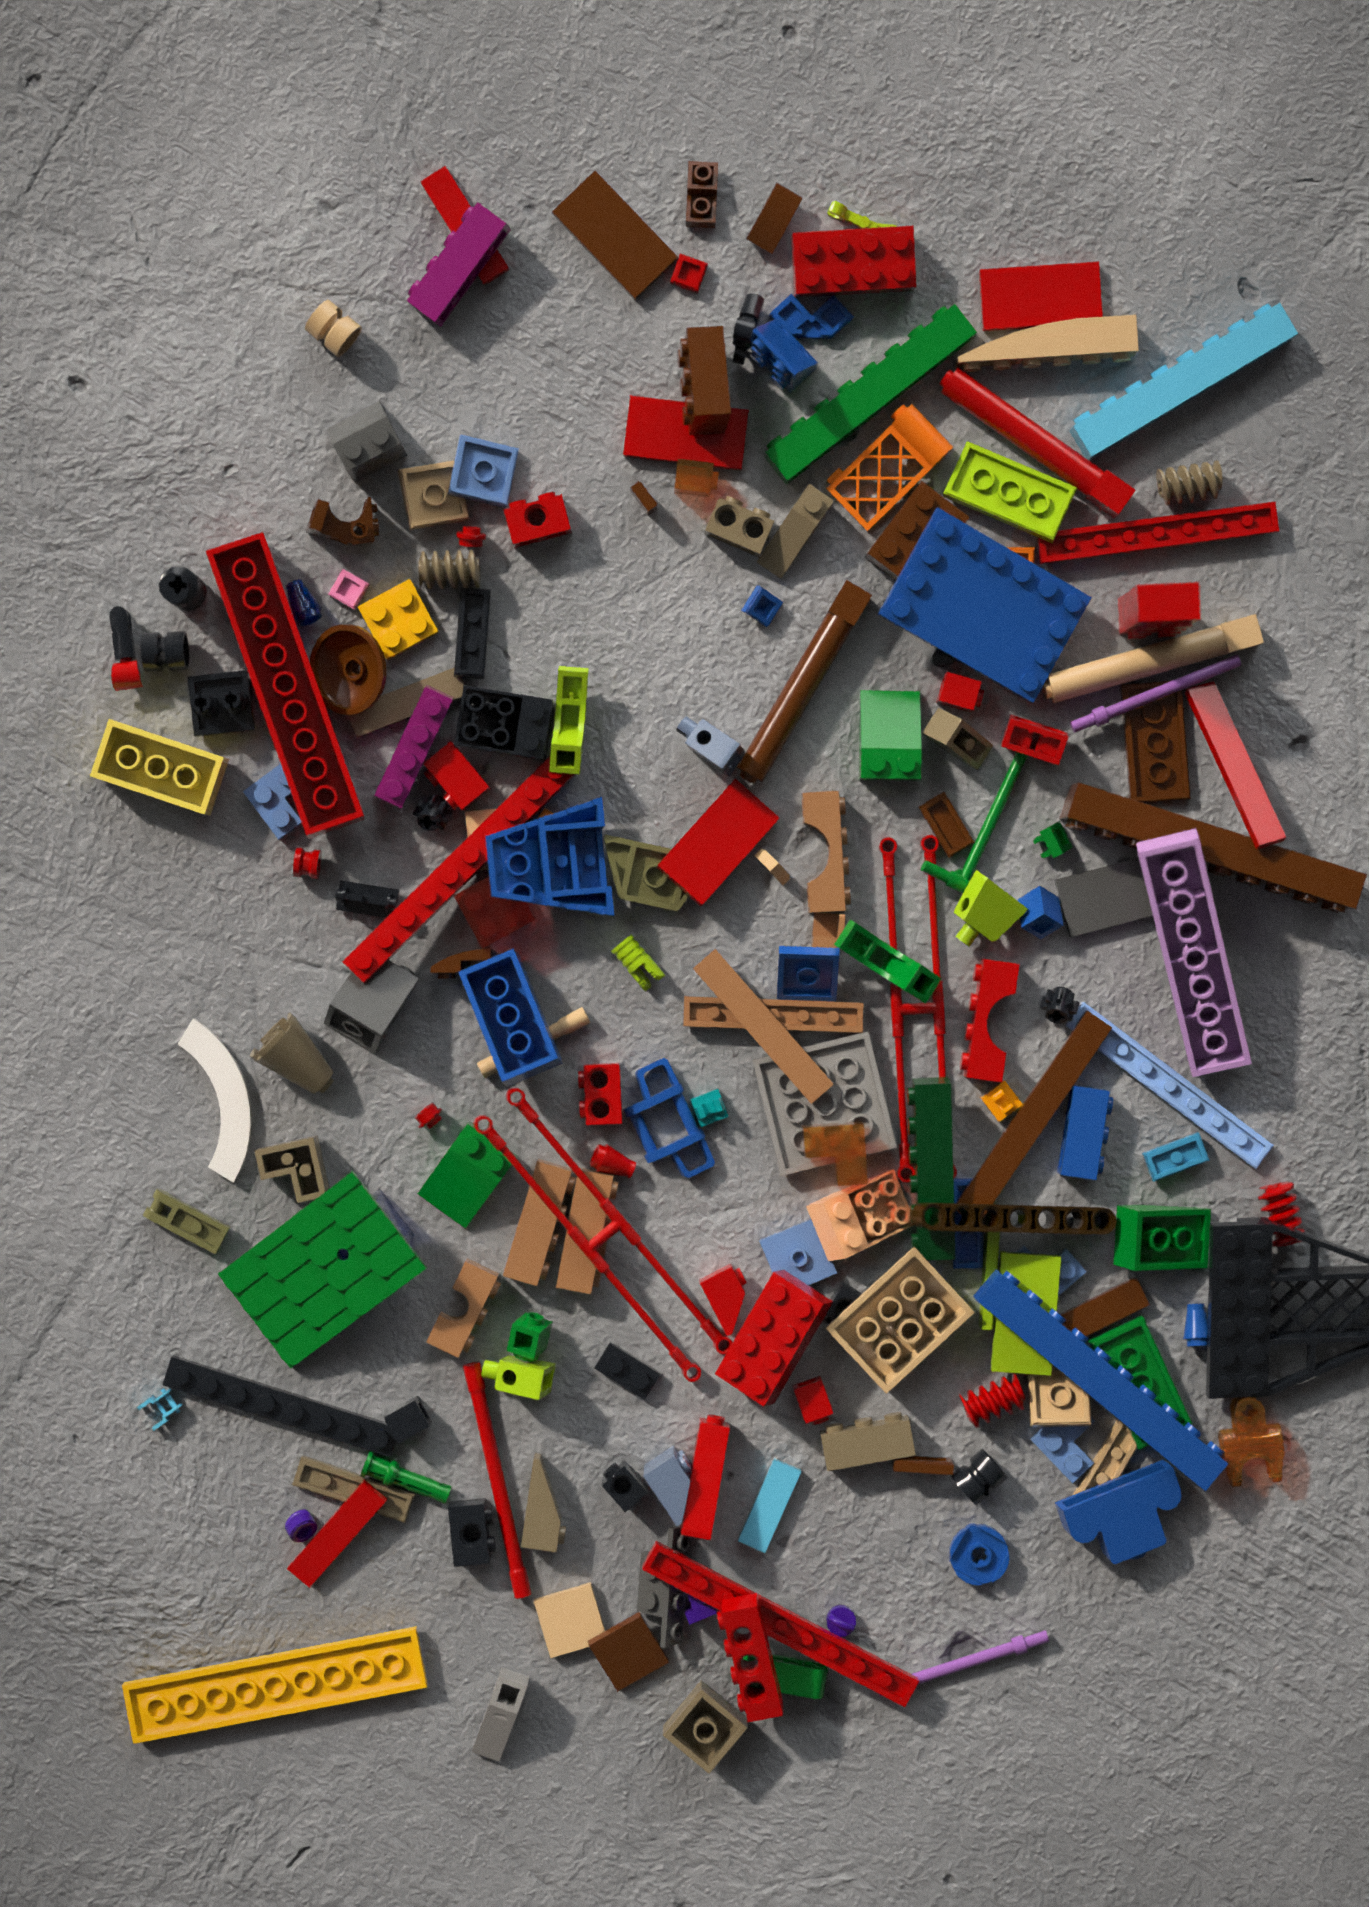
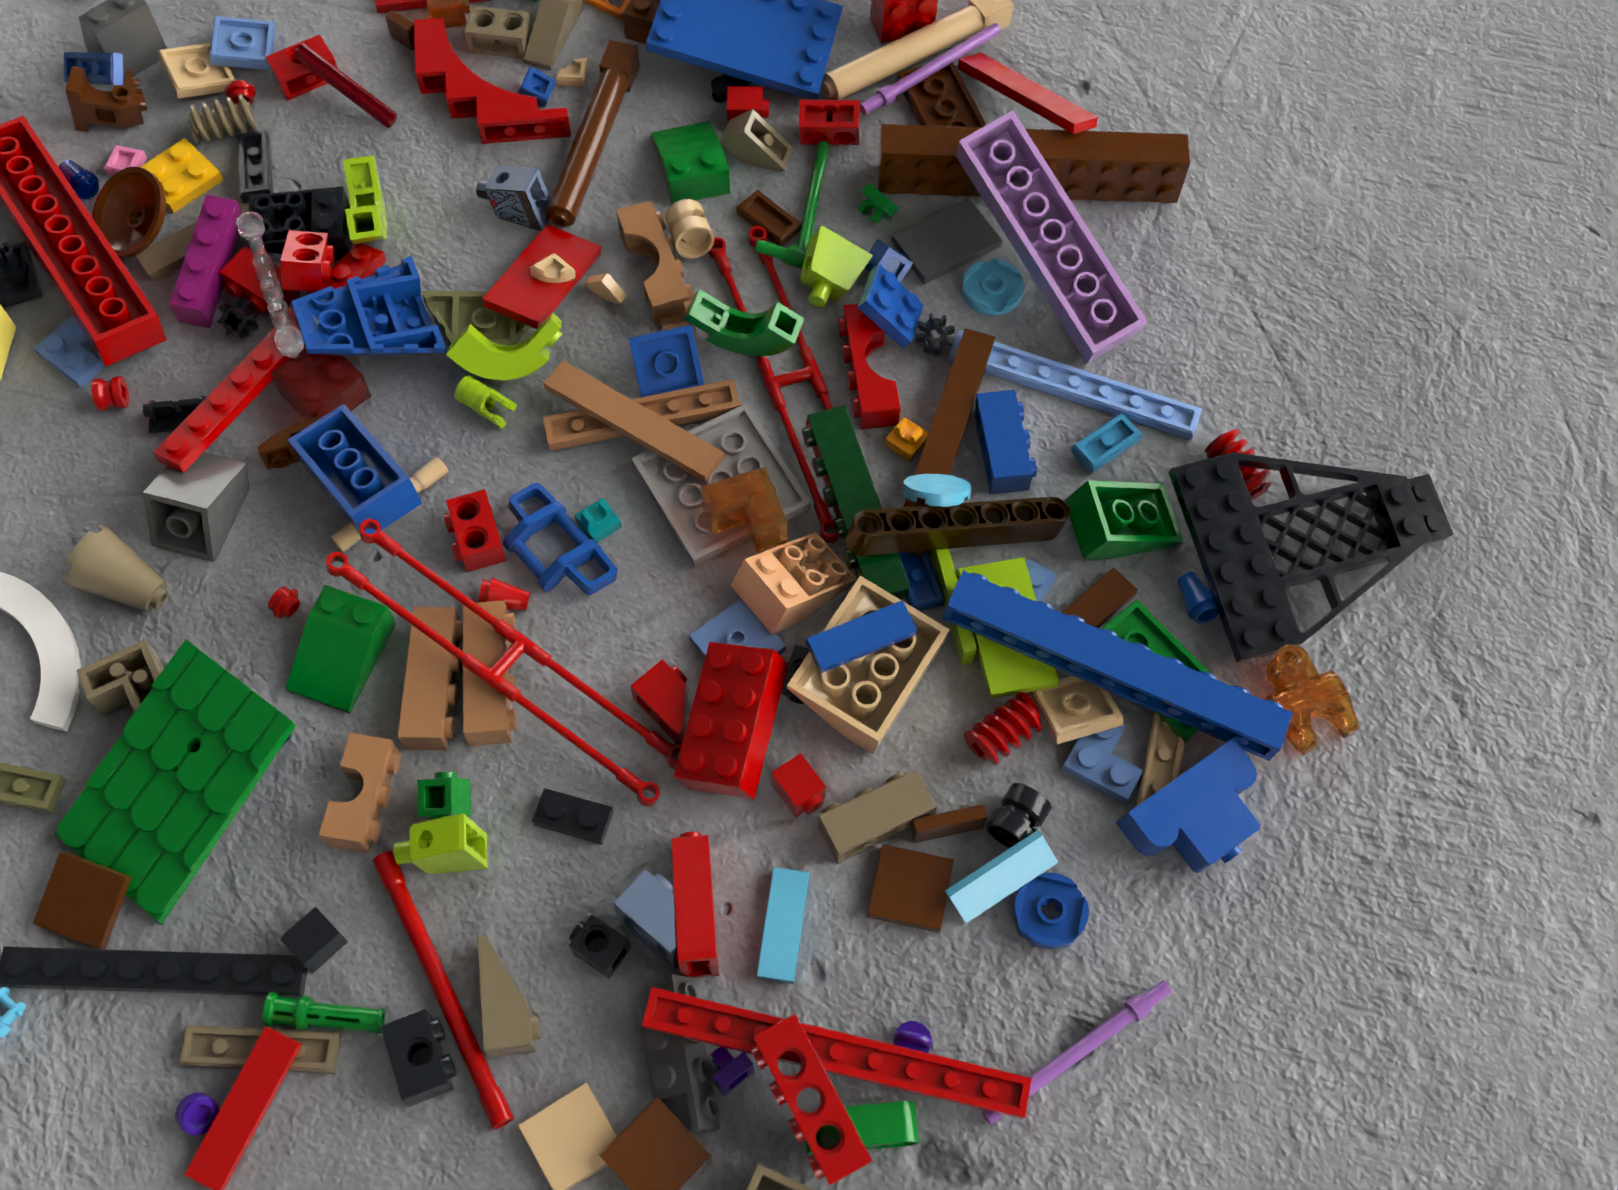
camera: 20 degrees left, 25 degrees down
(235, 1338) = (82, 900): none -> reddish brown tile
(334, 482) = (99, 67): none -> blue tile
(462, 746) = (286, 337): none -> clear bar
(502, 782) = (306, 261): none -> red brick
(575, 565) = (345, 85): none -> dark red axle
(666, 929) = (504, 362): none -> lime arch
(717, 633) = (499, 113): none -> red arch
(728, 845) = (552, 270): none -> tan tile
(802, 594) = (573, 75): none -> tan tile
(866, 827) = (689, 228): none -> tan wheel
(876, 1504) = (910, 888): none -> reddish brown tile
(899, 1305) = (861, 636): none -> blue tile
(949, 1522) = (1001, 876): none -> medium azure tile
(1005, 1183) = (937, 489): none -> medium azure tile
(1027, 972) = (891, 306): none -> blue plate
(1131, 960) = (992, 287): none -> medium azure tile

